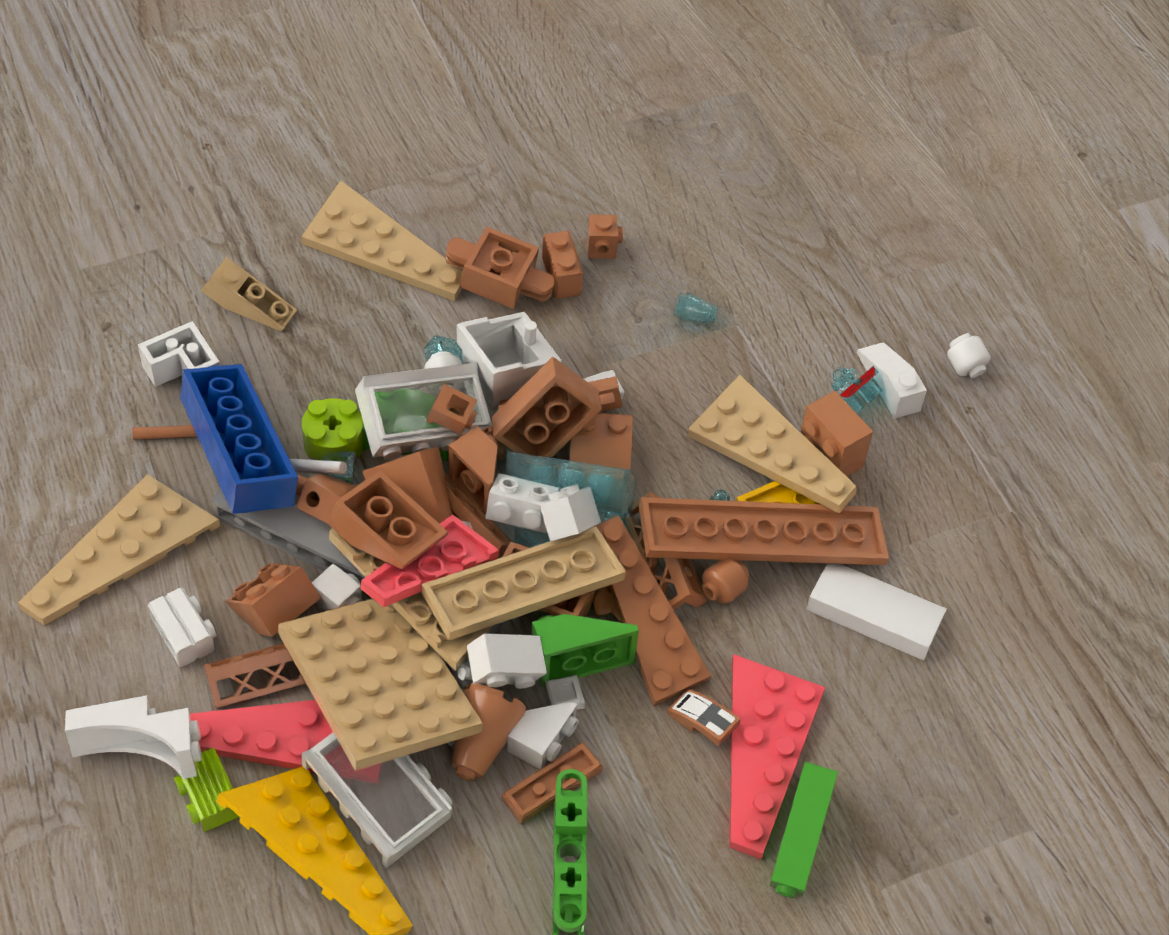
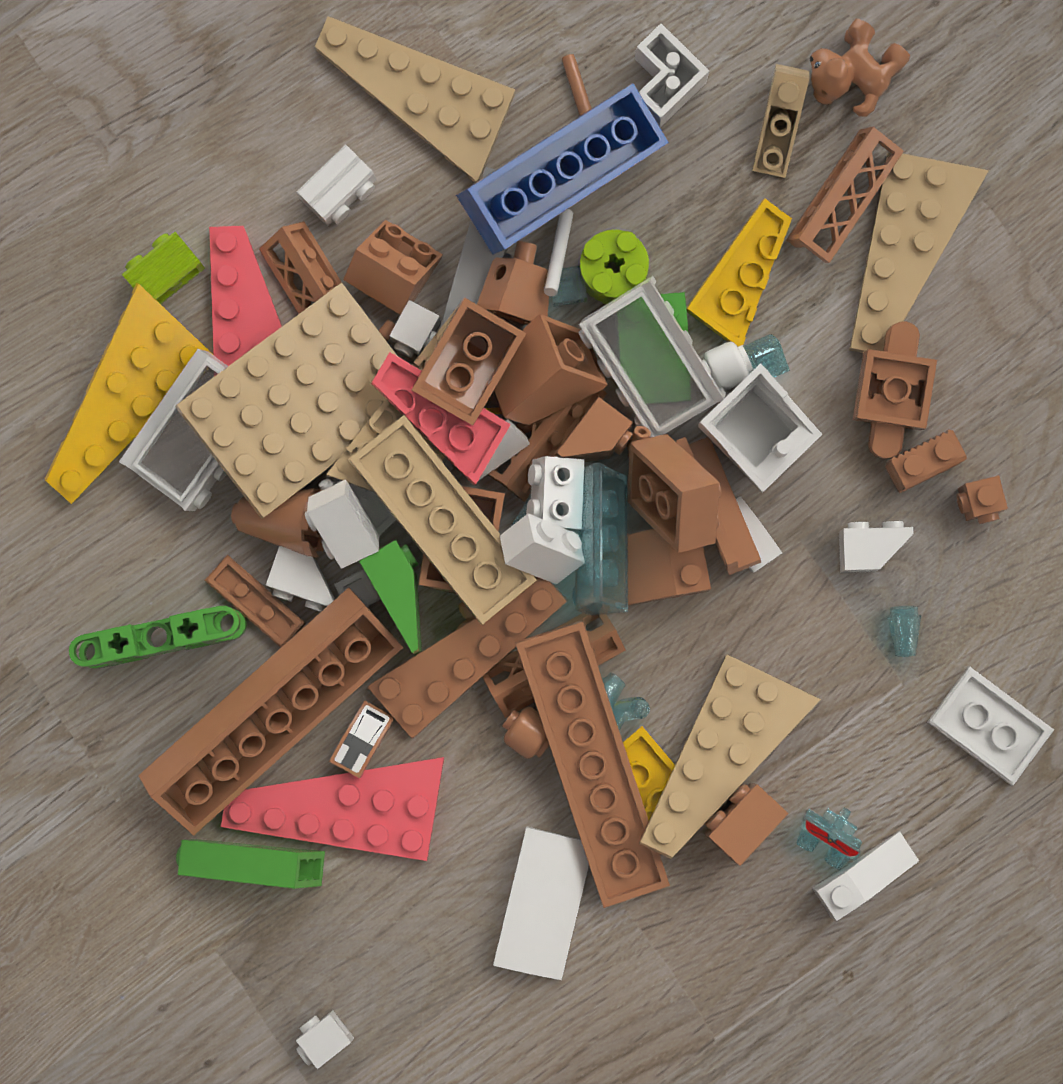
camera: 85 degrees right, 30 degrees up
(136, 728) = (207, 179): white arch -> none
(226, 237) = (835, 73): none -> nougat animal
(319, 270) = (834, 188): none -> nougat fence
(362, 349) = (735, 284): none -> yellow wing
(453, 410) = (644, 374): nougat brick -> none
(623, 316) = (870, 548): none -> white slope
(665, 776) = (270, 712): none -> nougat brick
(783, 276) = (990, 726): none -> white tile
(968, 355) = (918, 965): white head -> none
(978, 804) = (322, 1039): none -> white brick

